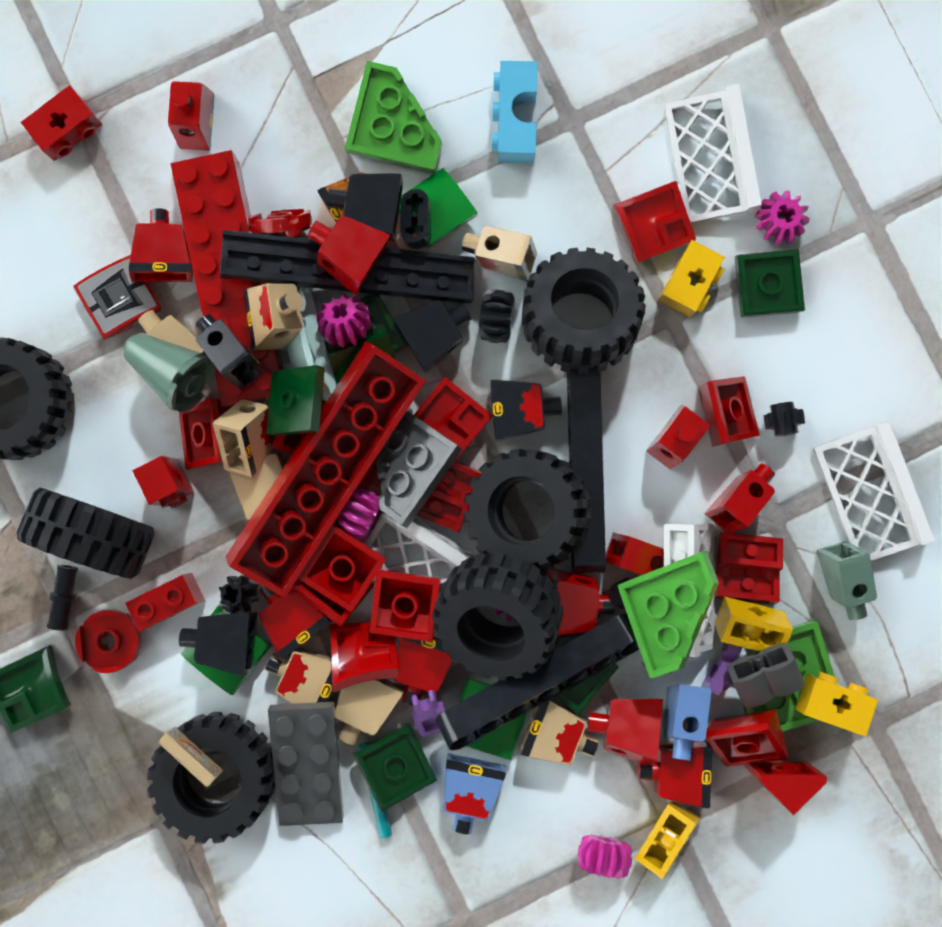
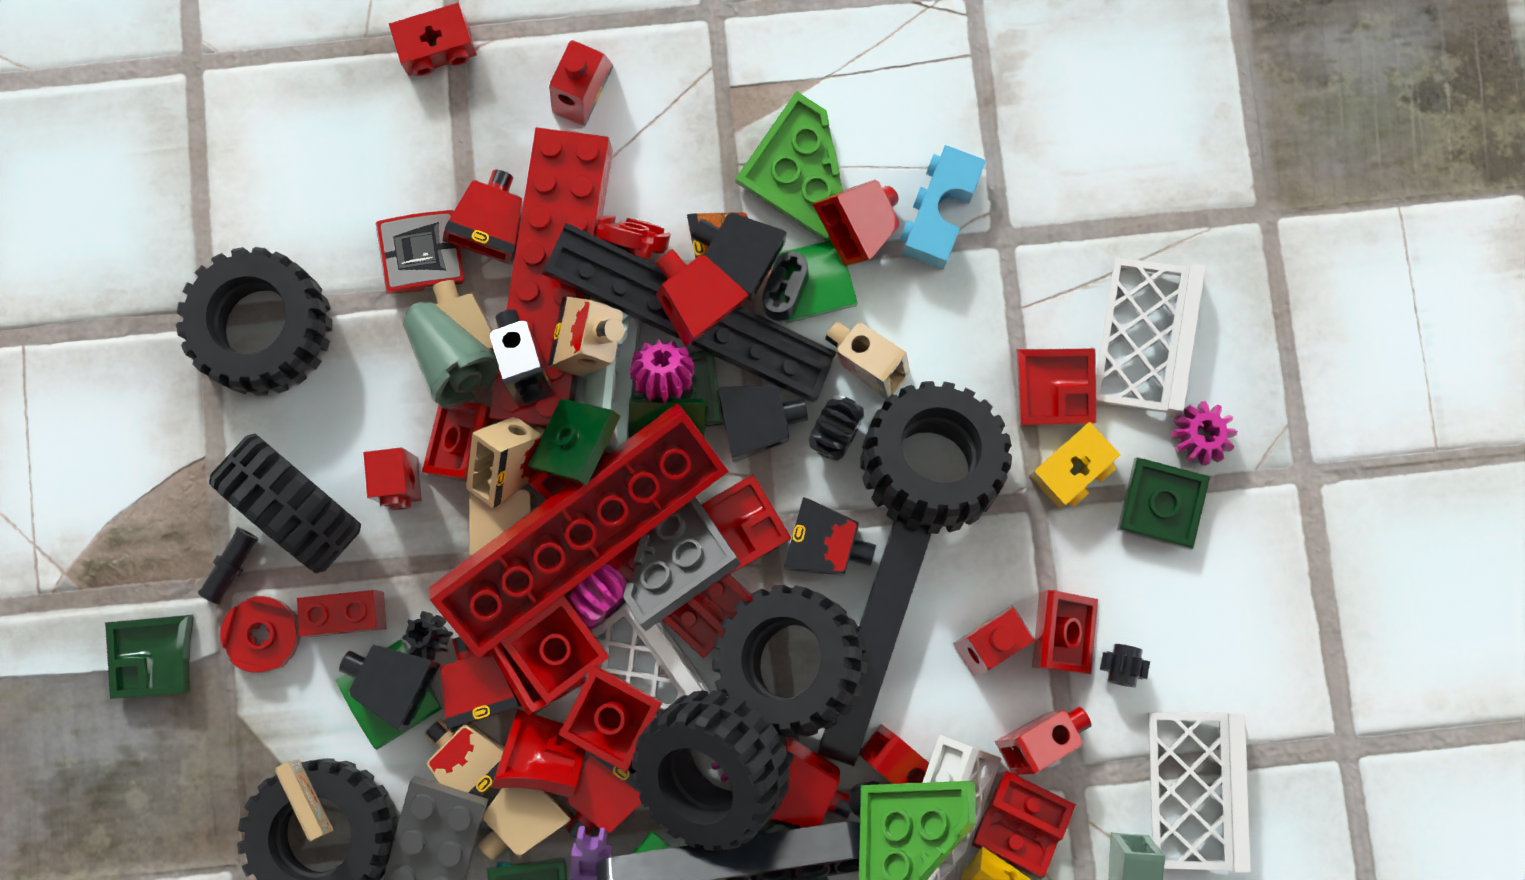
camera: 20 degrees right, 5 degrees down
(454, 145) = (859, 220): none -> torso

